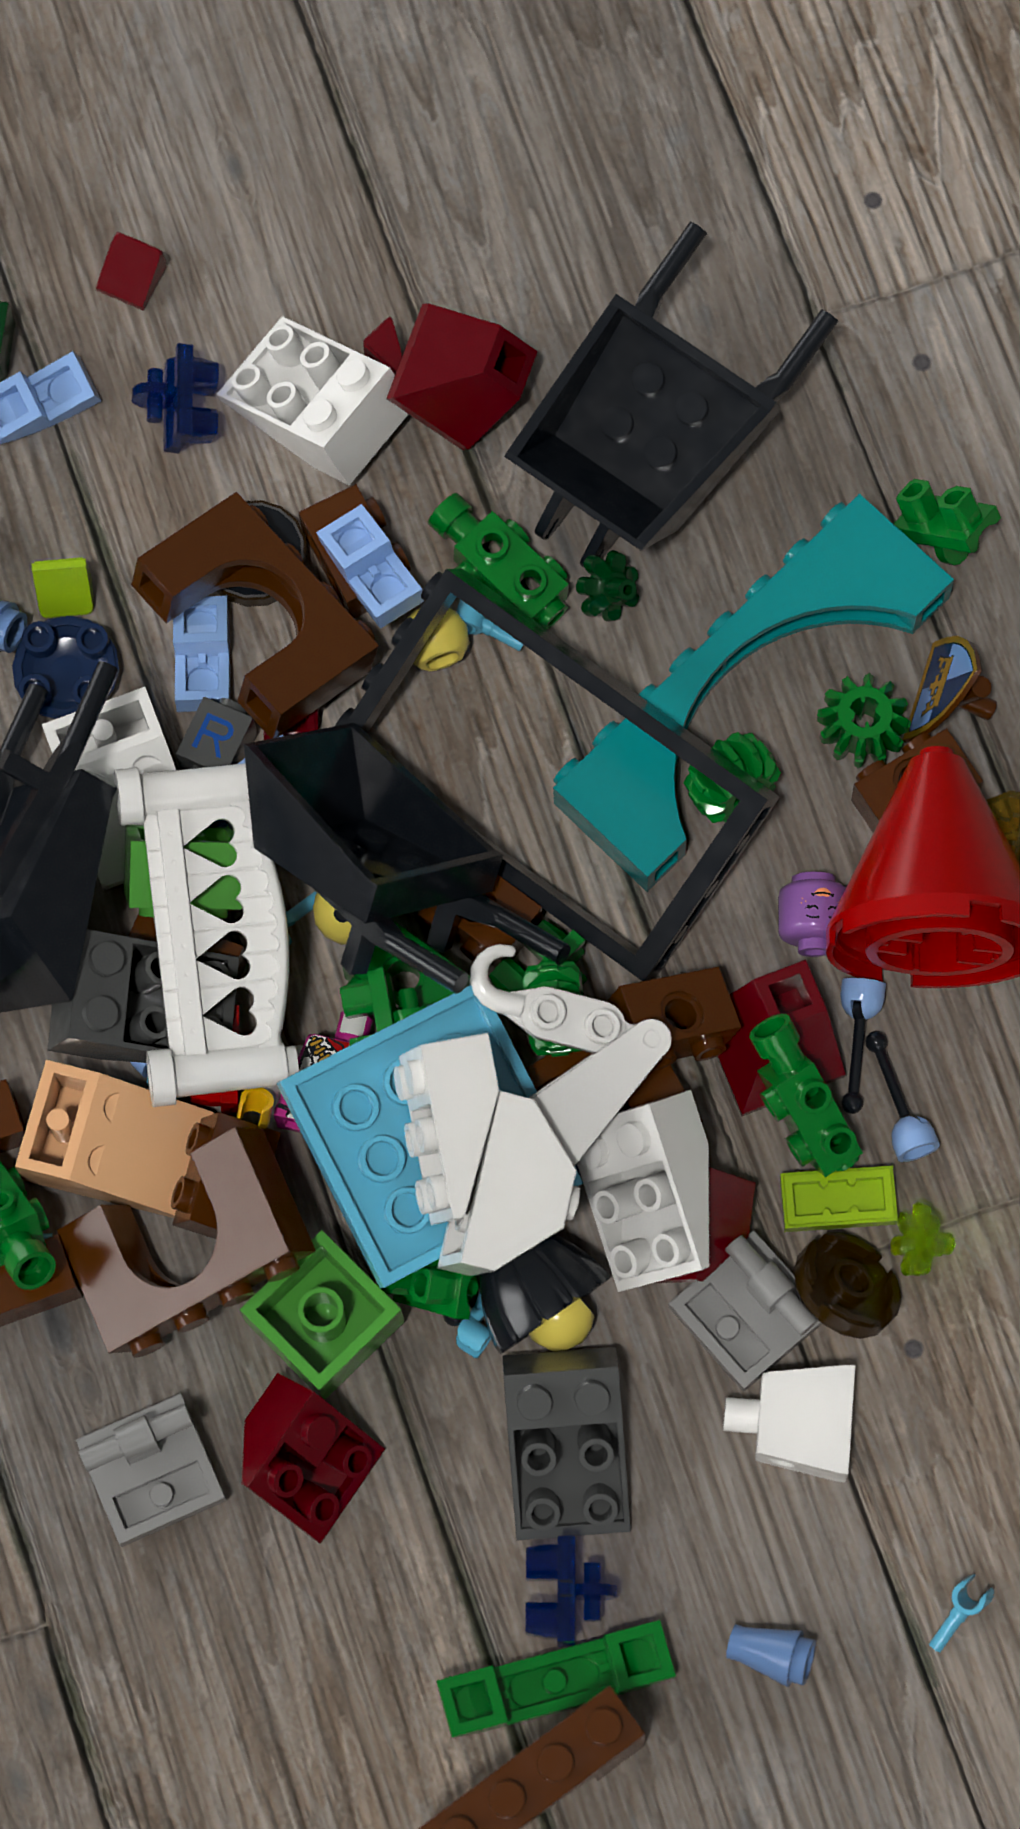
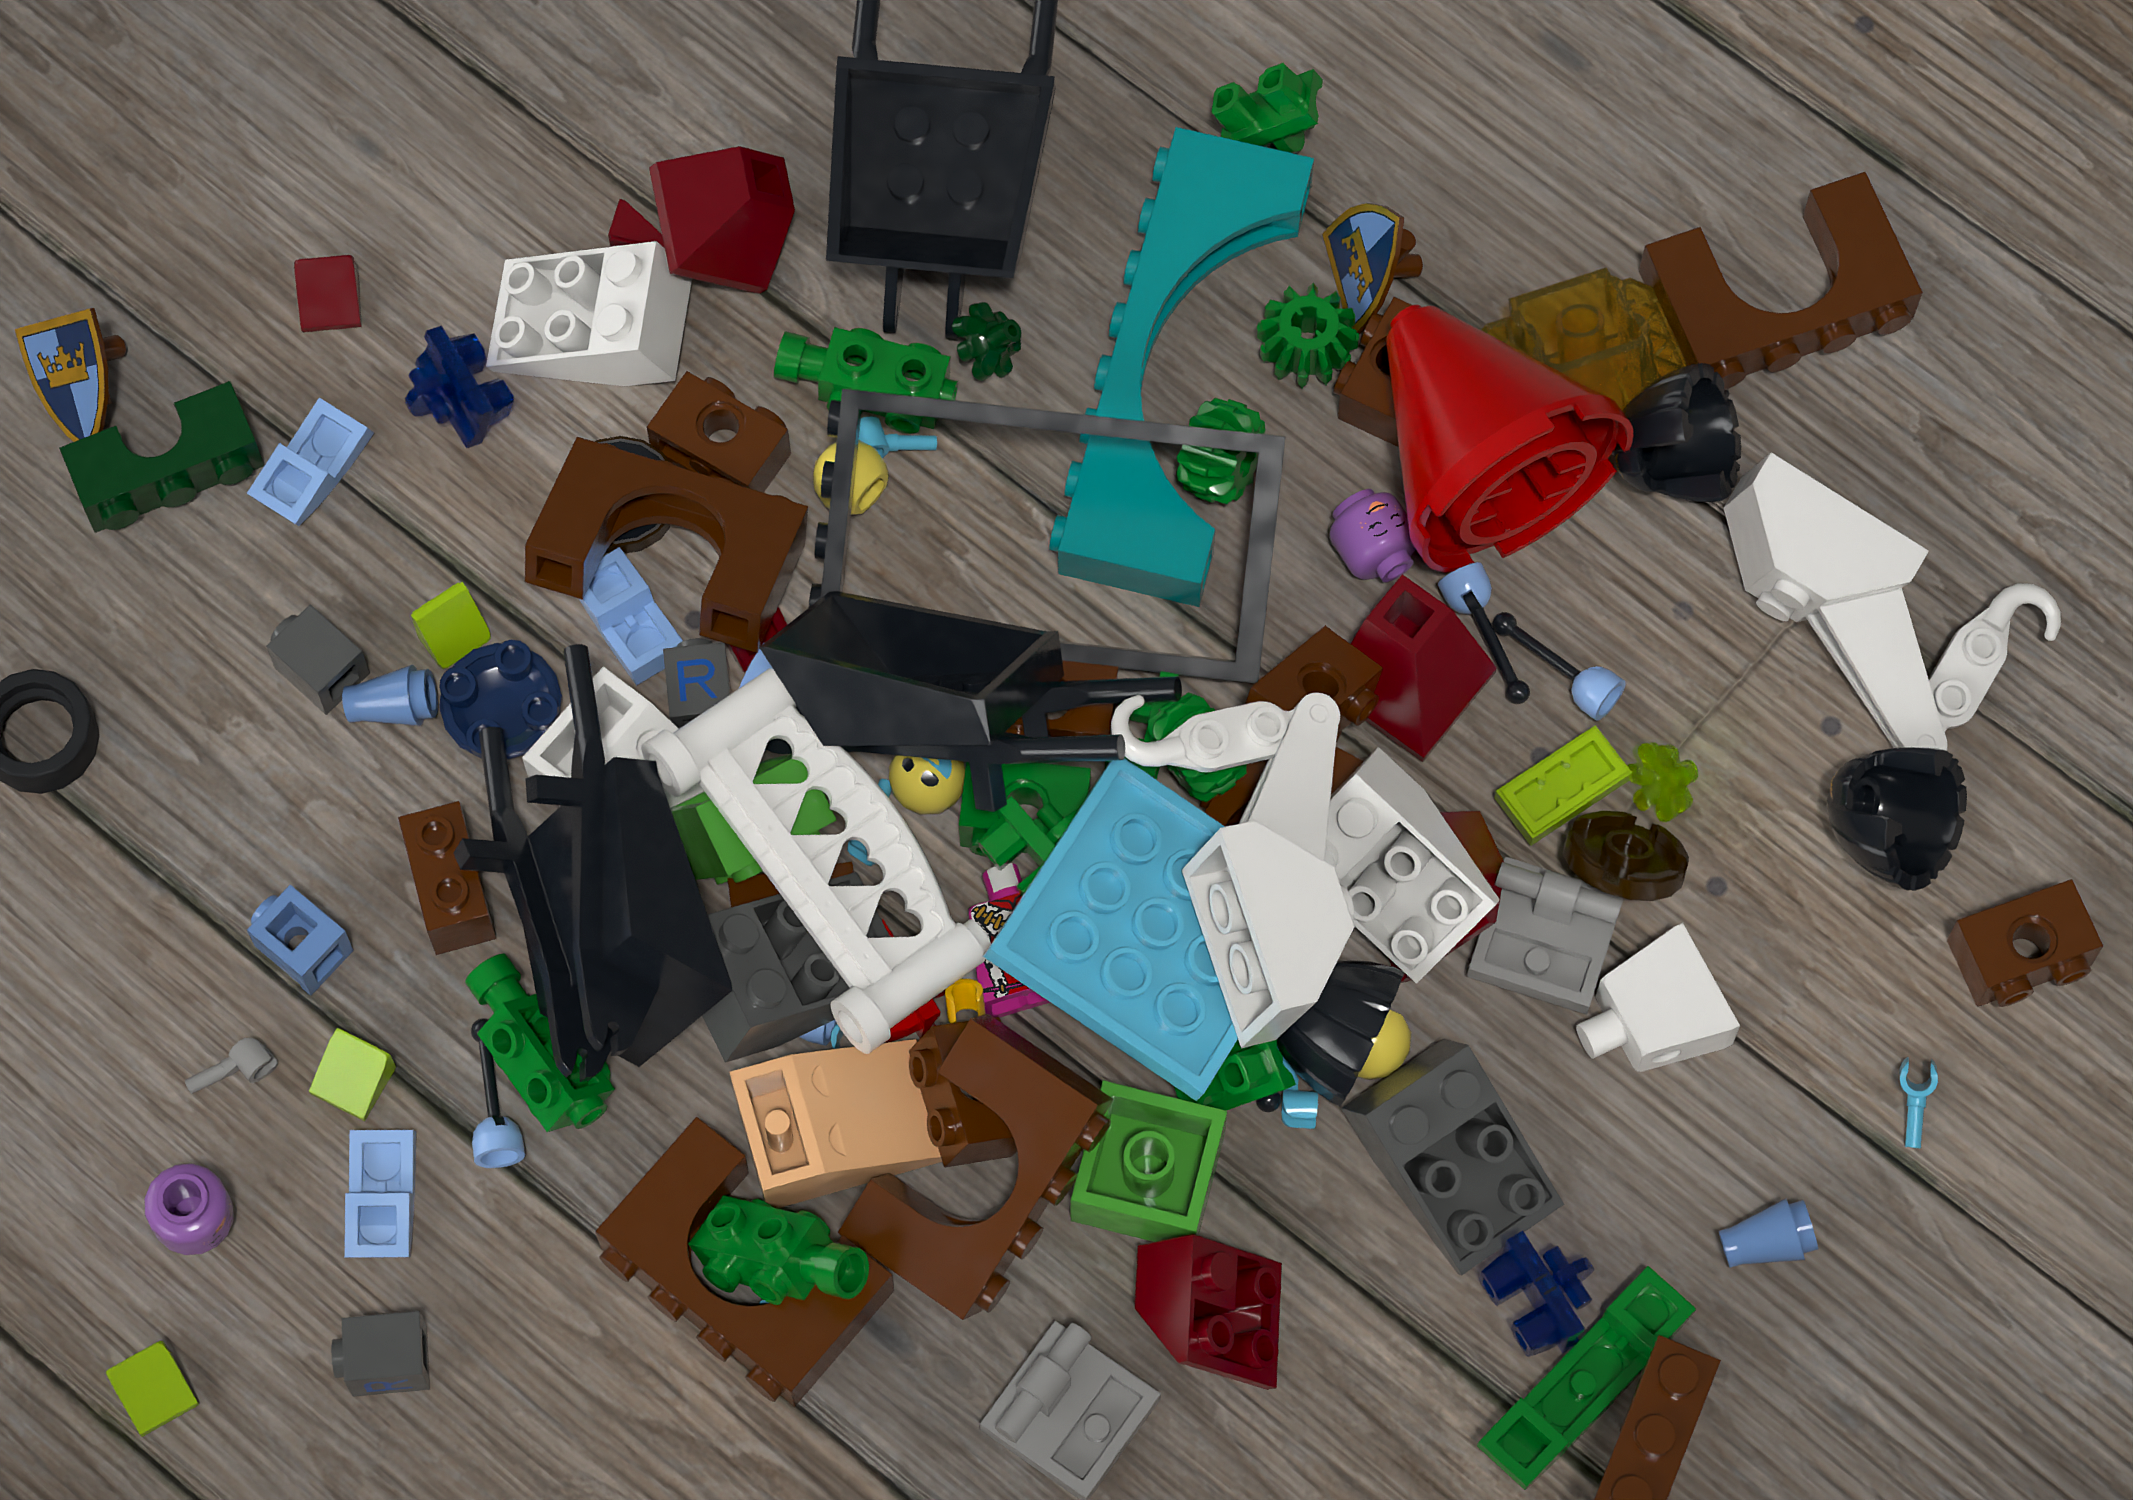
camera: 35 degrees left, 5 degrees down
(370, 566) = (751, 439): light blue slope -> none
(450, 1105) = (1179, 890): white slope -> none
(802, 1099) = (1493, 720): green brick -> none

